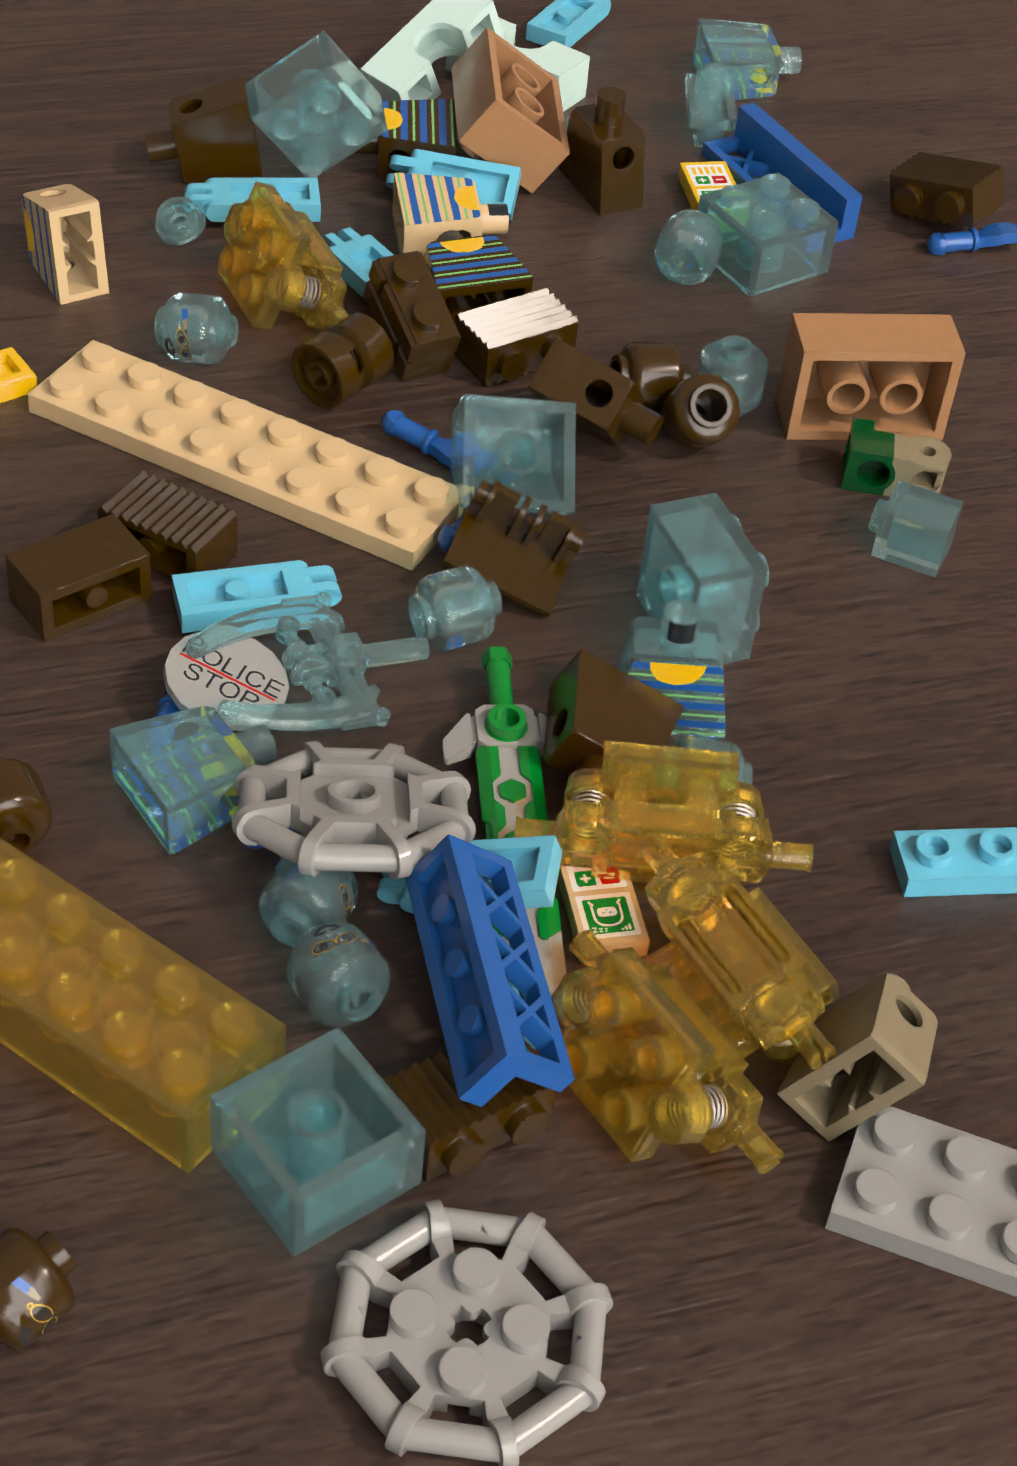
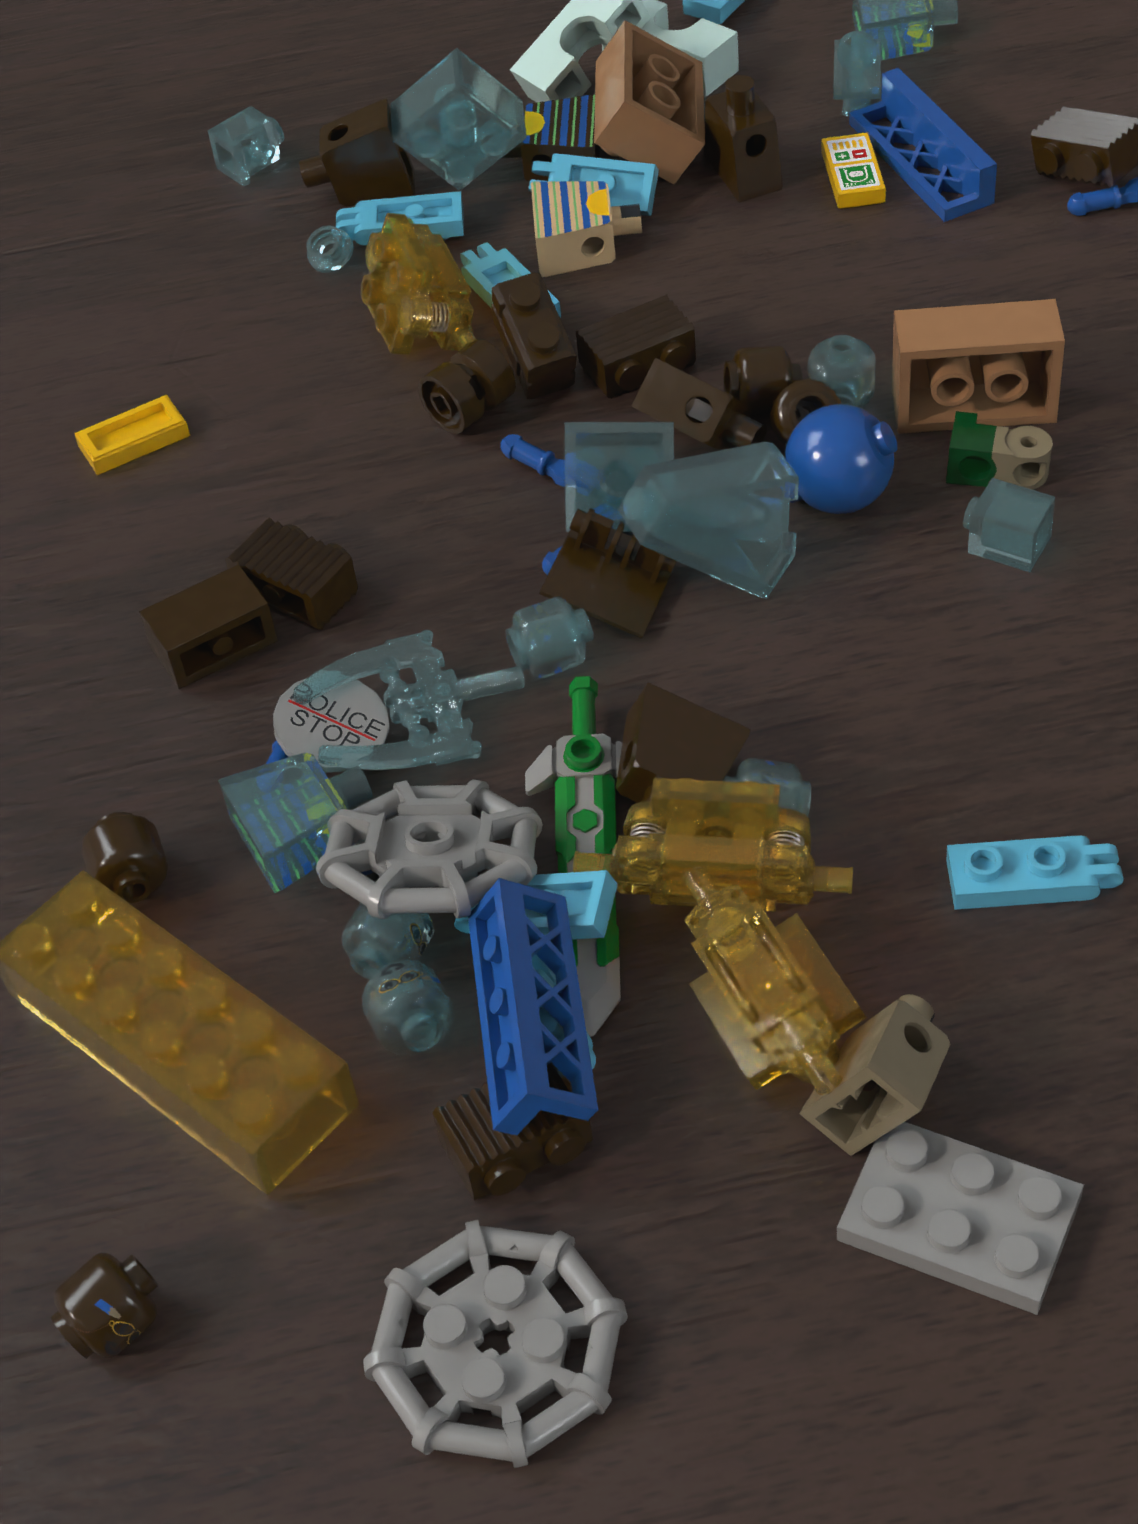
camera: 15 degrees right, 5 degrees up
(62, 228) = (216, 270): tan torso -> none
(90, 115) = (245, 144): none -> clear light blue brick
(195, 328) = (333, 362): clear light blue head -> none
(217, 594) = (340, 633): medium azure hinge -> none
(249, 453) = (378, 487): tan plate -> none
(316, 1140) = (370, 1167): clear light blue brick -> none
(475, 271) = (599, 283): dark brown torso -> none
(605, 908) = (659, 941): tile -> none
(610, 480) = (719, 514): none -> clear light blue slope
(654, 1060) = (683, 1083): clear yellow piece -> none
(681, 661) = (753, 689): clear light blue torso -> none
(689, 247) = (816, 234): clear light blue head -> none
(704, 557) = (782, 599): clear light blue brick -> none
(741, 453) = (841, 458): none -> blue brick
(770, 233) = (896, 212): clear light blue brick -> none

